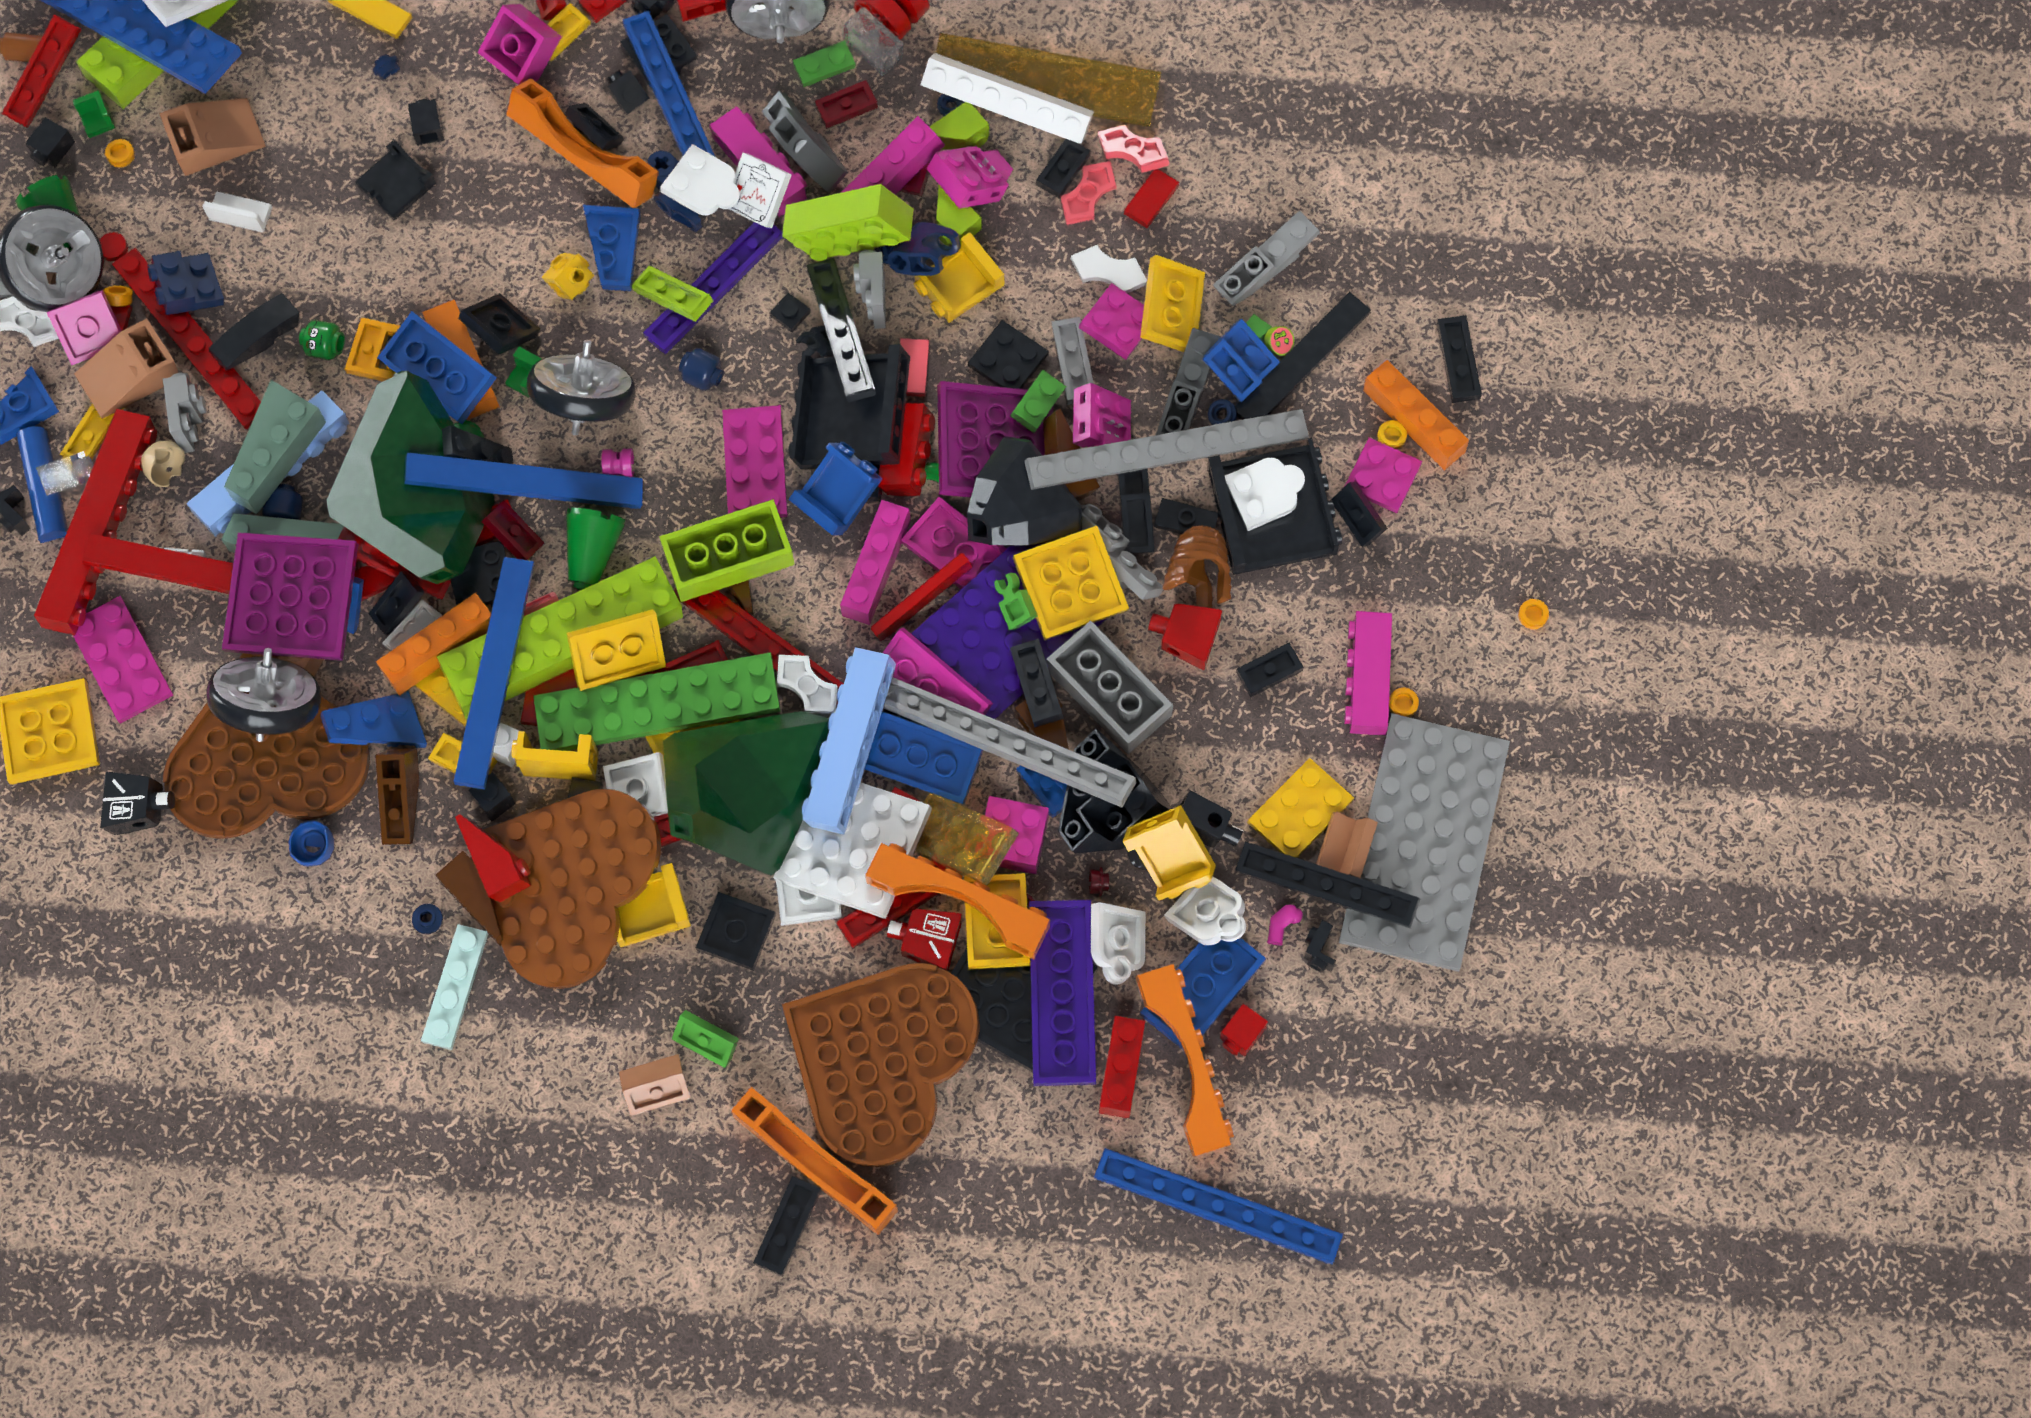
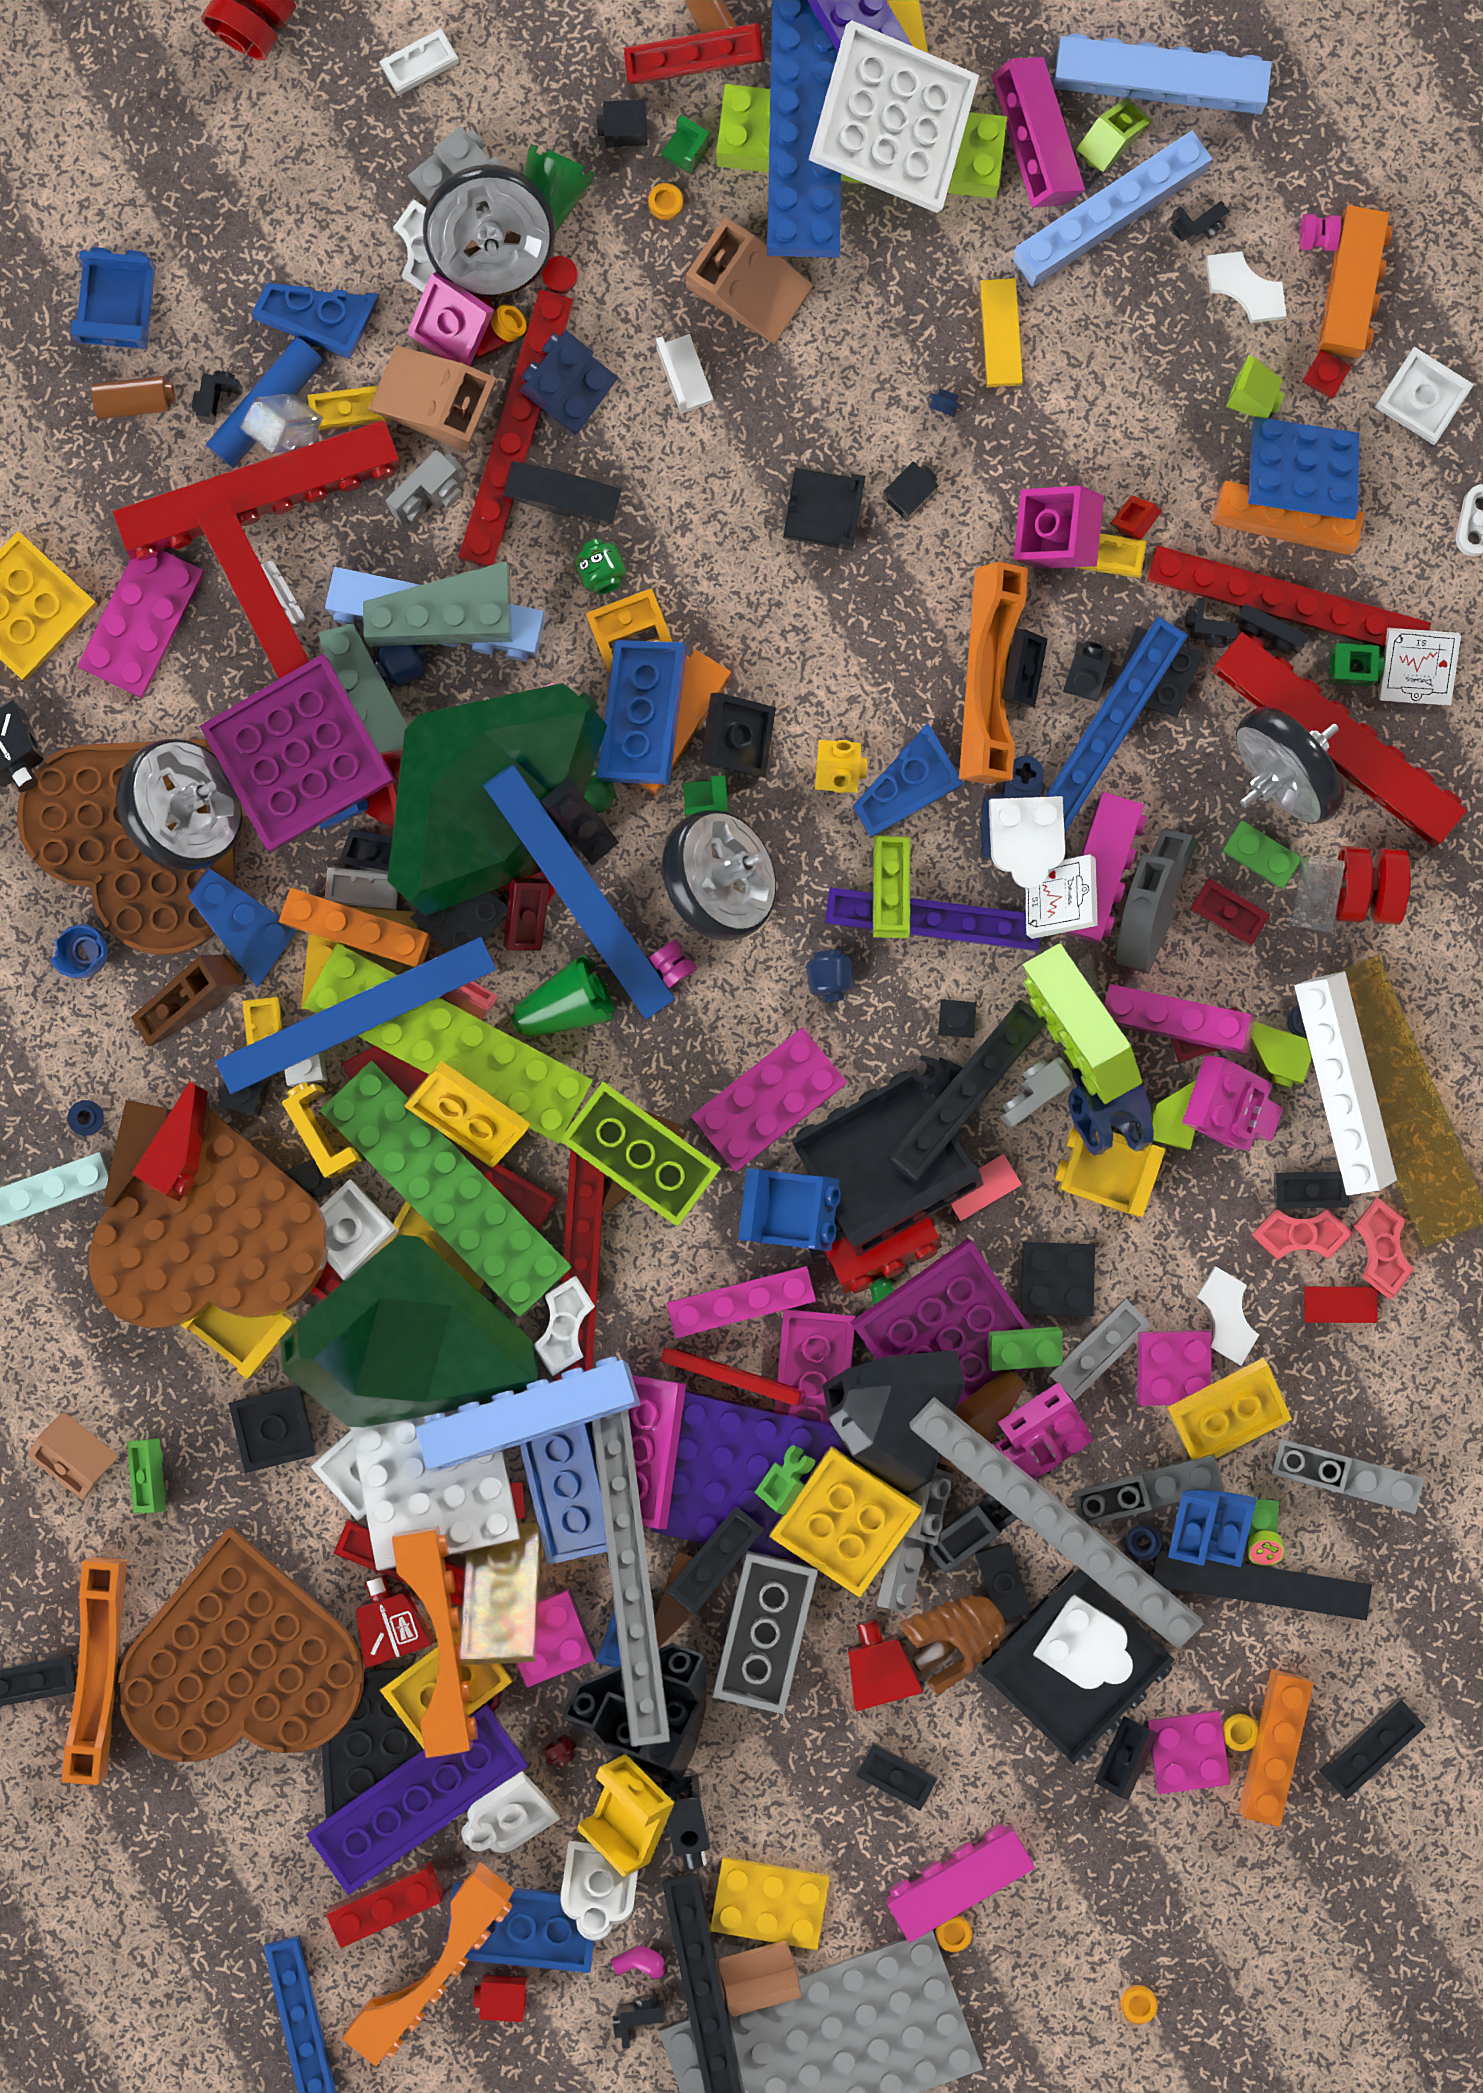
camera: 55 degrees right, 15 degrees up
(158, 458) = (356, 501): tan hair -> none

